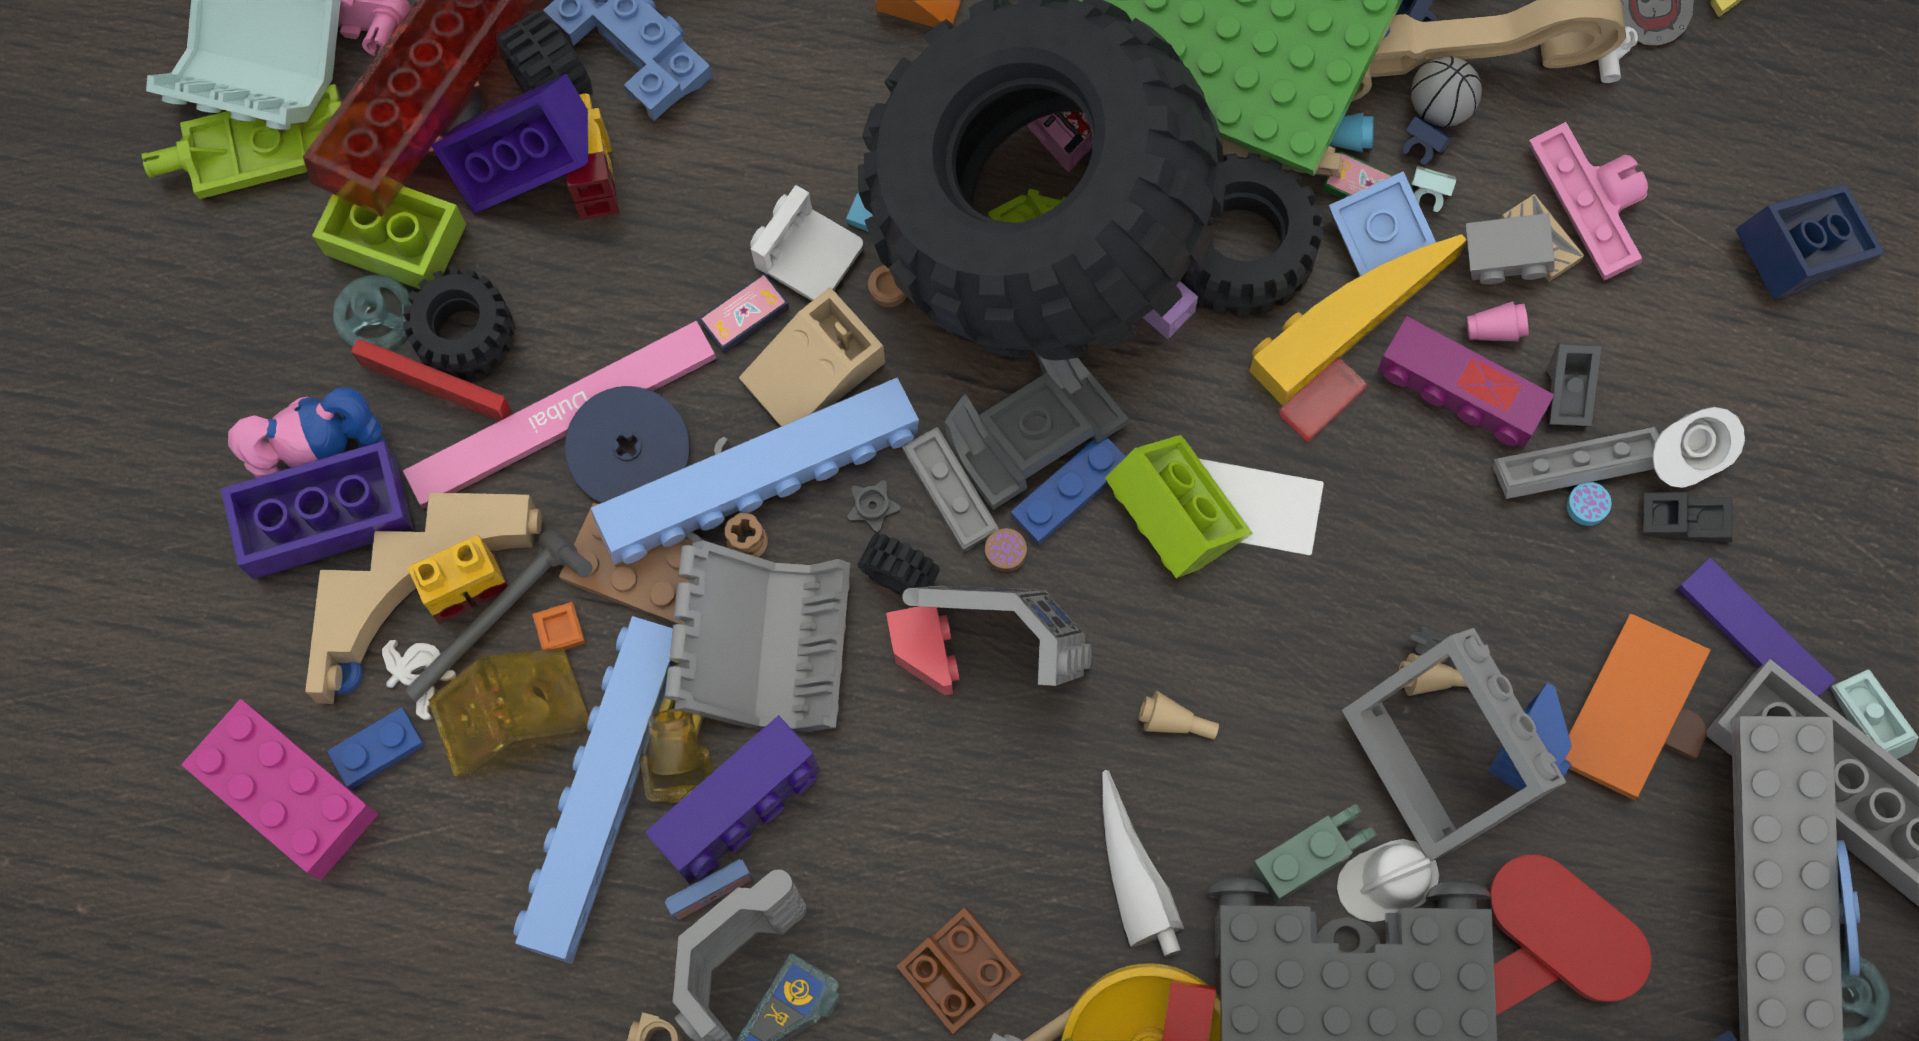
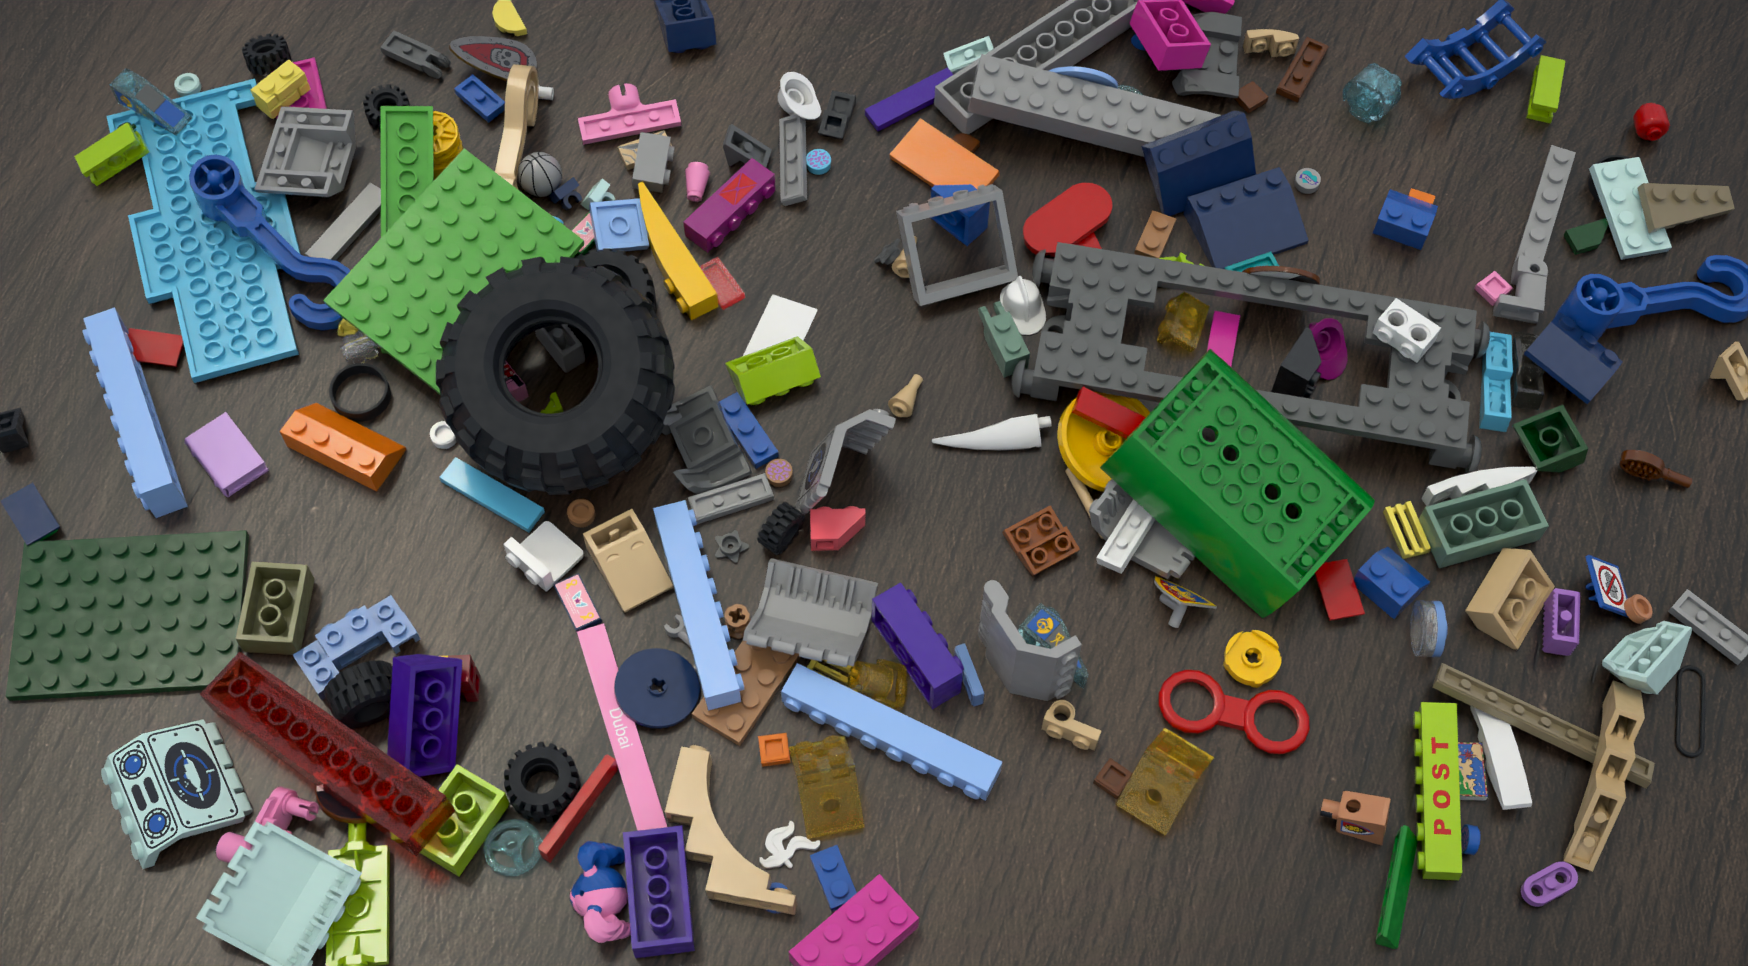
camera: 85 degrees left, 10 degrees down
(453, 572) = (732, 799): yellow hips -> none
(552, 552) = (721, 743): dark grey bar -> none

